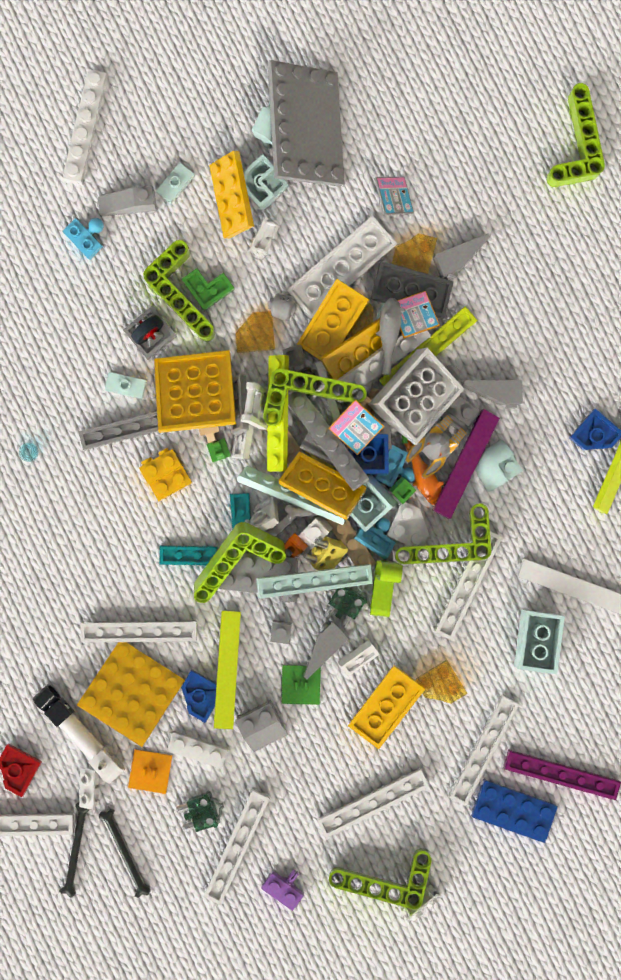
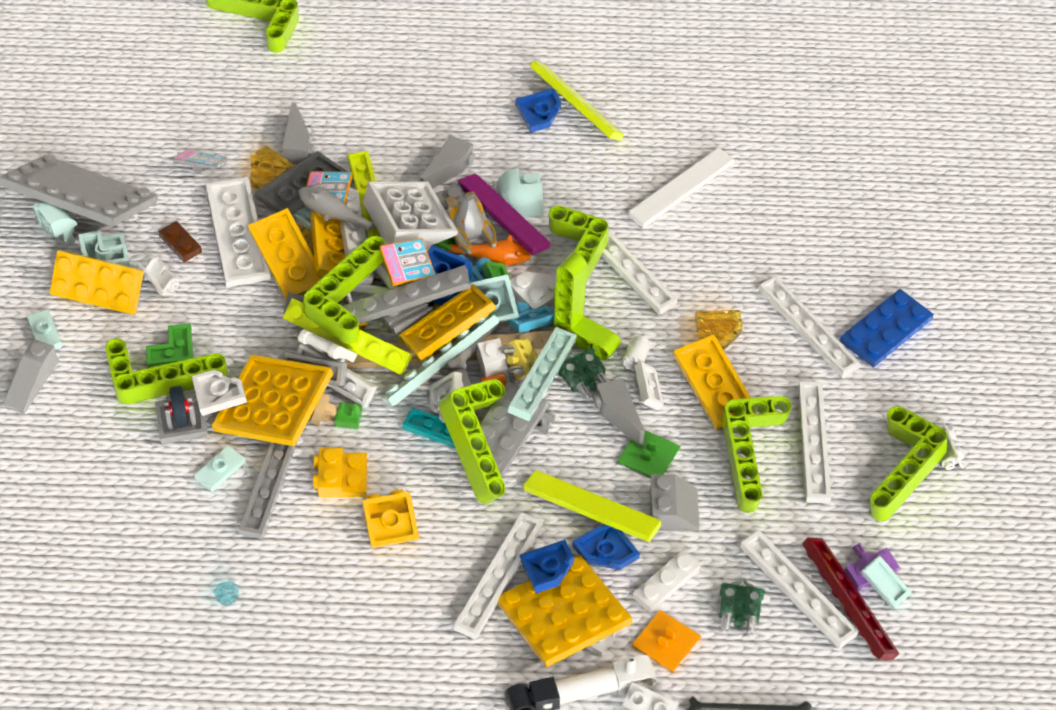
camera: 65 degrees left, 35 degrees down
(83, 237) = (35, 435): medium azure plate -> none
(142, 531) = (390, 518): none -> yellow plate
(155, 666) = (547, 565): none -> blue plate
(179, 347) = (217, 391): none -> white plate
(186, 555) = (442, 494): teal tile -> none
(246, 887) = (850, 598): none -> dark red plate
(256, 333) = (251, 330): clear yellow plate -> none
(272, 907) = (885, 582): none -> light aqua tile
(281, 632) = (580, 439): light grey brick -> none
(282, 306) = (240, 291): light grey head -> none
(310, 229) = (180, 241): none -> reddish brown plate
(337, 756) = (744, 445): none -> lime beam
(384, 633) = (636, 352): none -> white piece
(539, 641) = (718, 229): light aqua brick -> none
(562, 774) = (868, 275): magenta tile -> none

